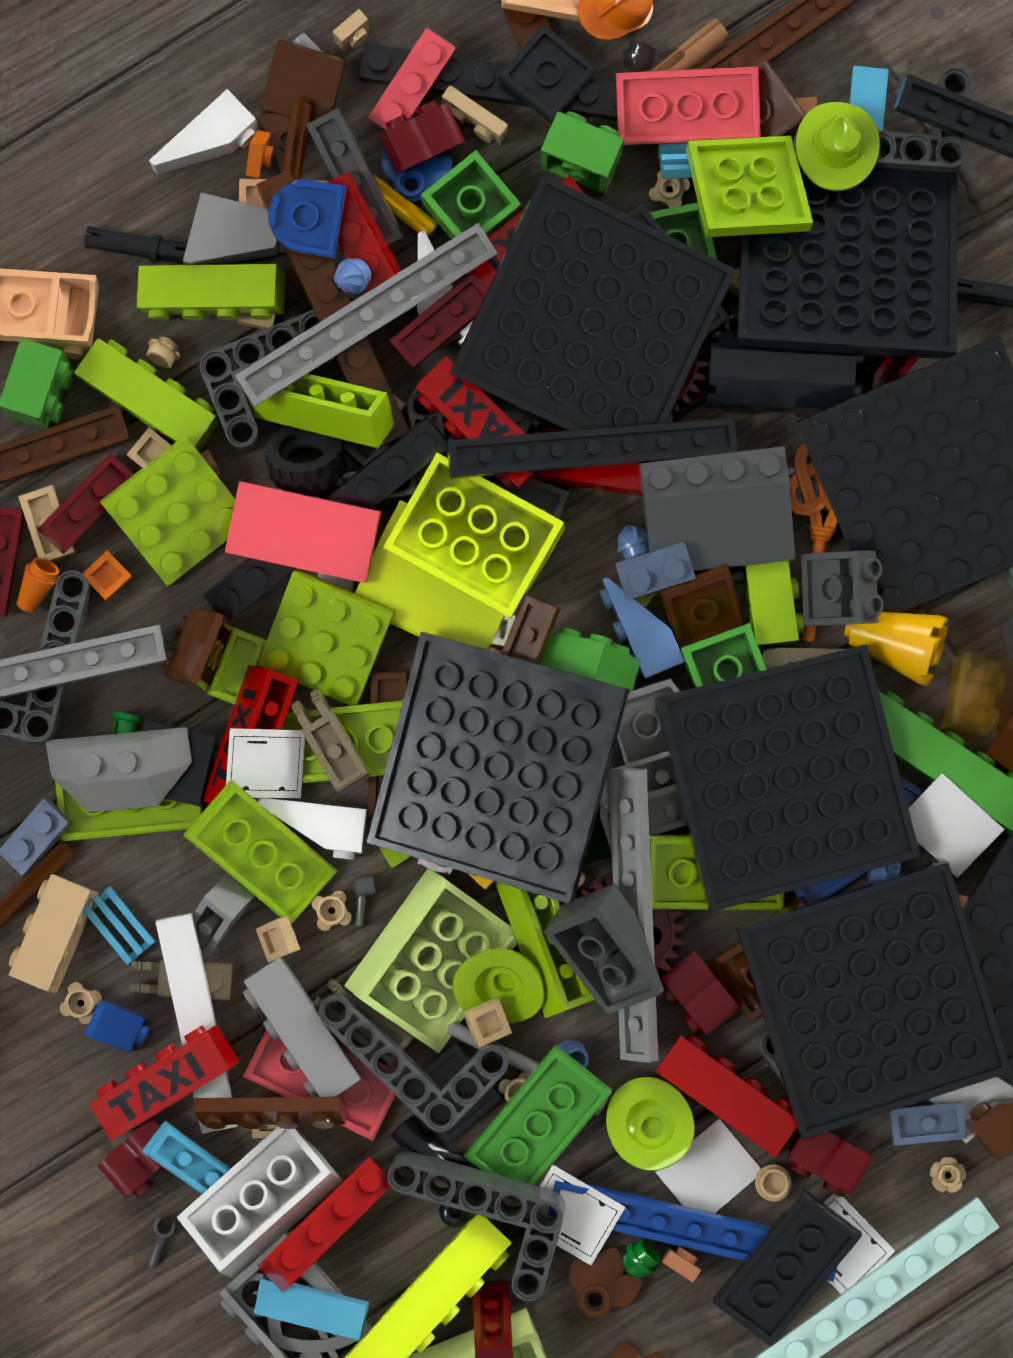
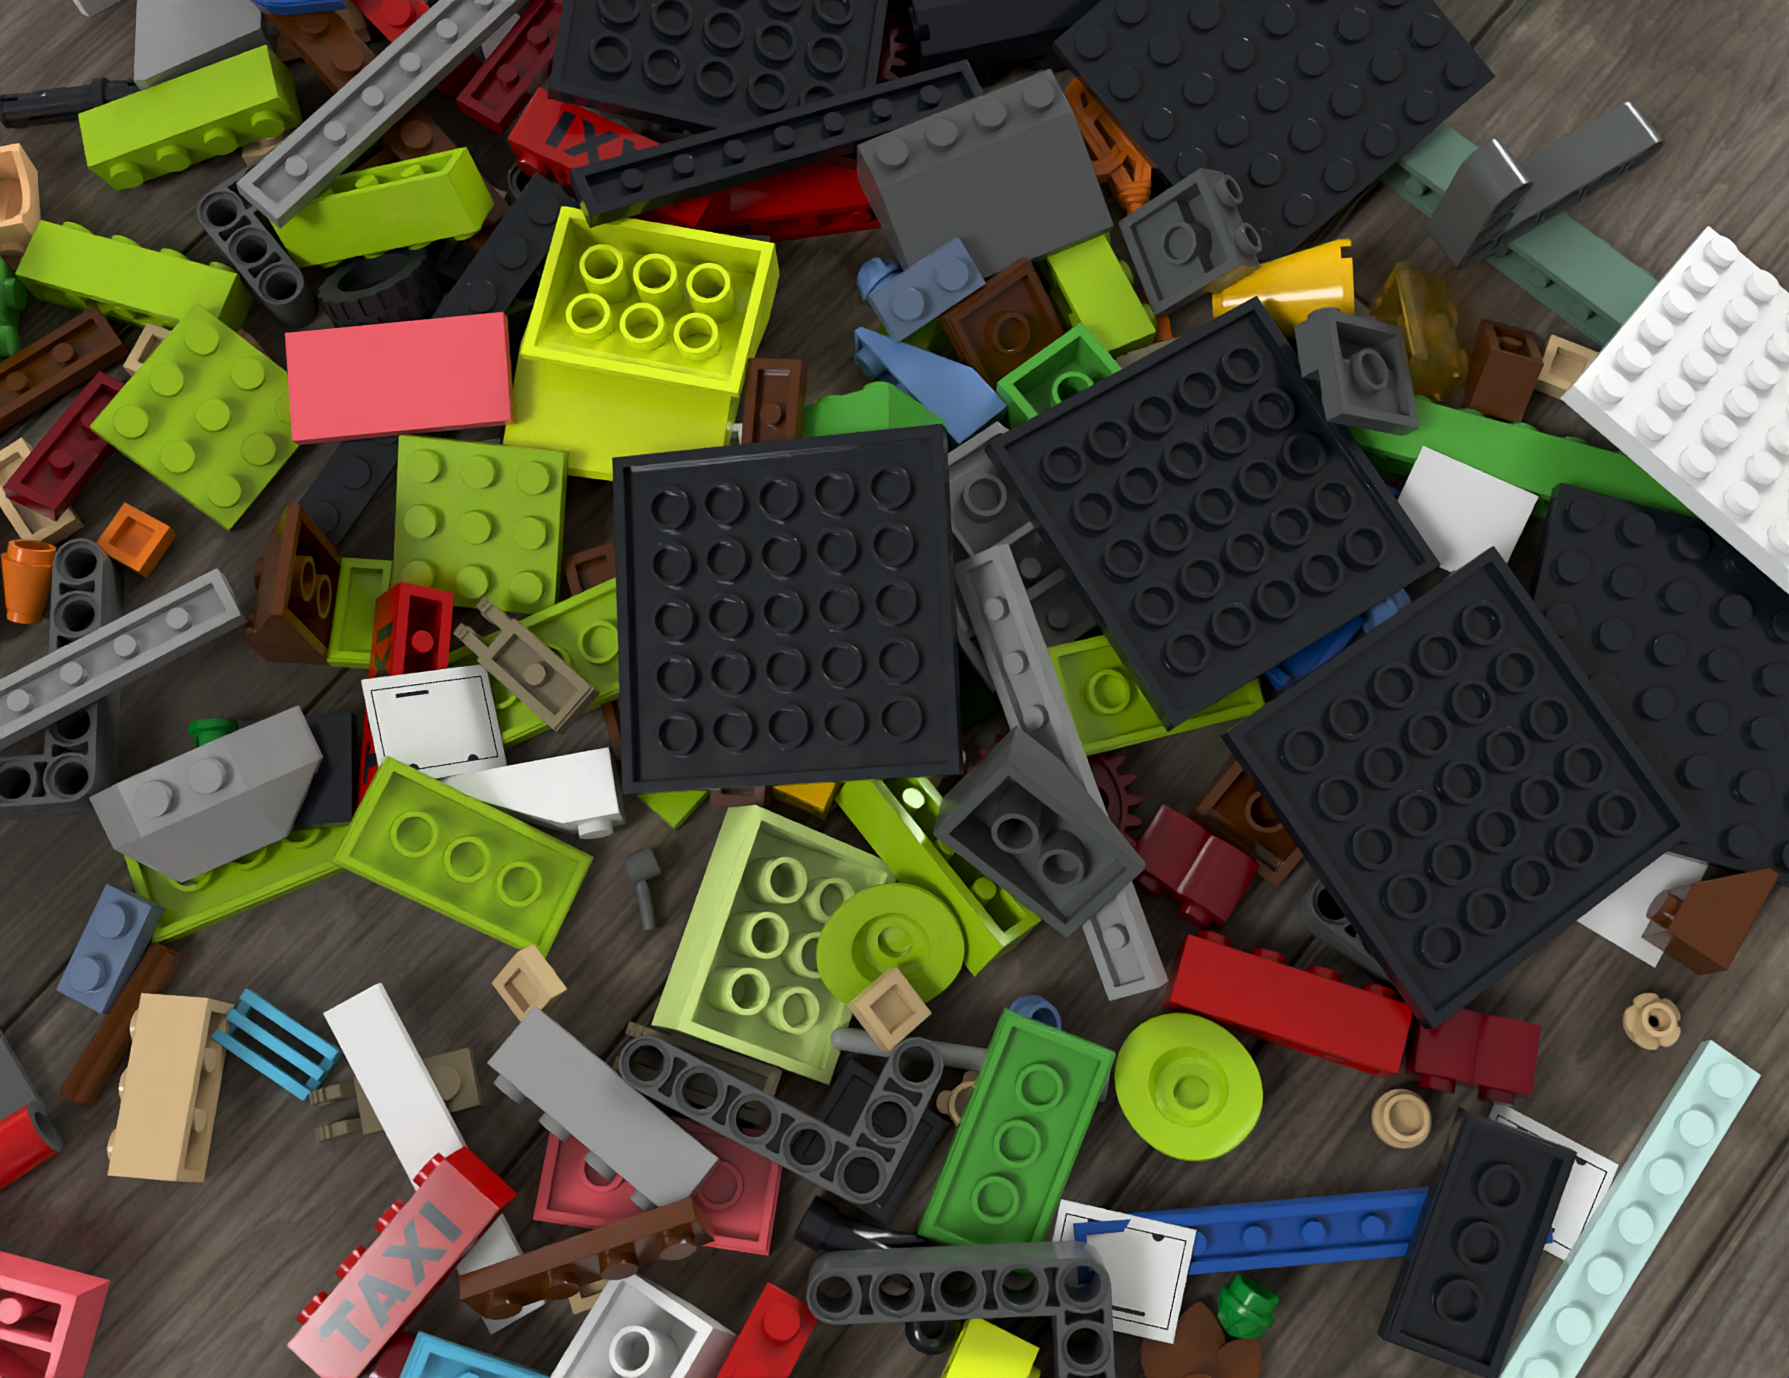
camera: 25 degrees left, 10 degrees down
(77, 993) = (227, 1185): tan plate -> none
(117, 1026) = (303, 1202): blue slope -> none
(163, 352) = (146, 224): tan plate -> none
(219, 913) = (426, 975): light grey slope -> none
(341, 915) = (585, 915): tan plate -> none
(352, 275) = (377, 25): medium blue plate -> none
(682, 1262) = (1312, 1290): nougat plate -> none
(711, 1170) = (1302, 1134): white sticker -> none
(911, 718) = (1359, 370): none -> dark grey plate
(928, 1123) = (1594, 953): sand blue plate -> none

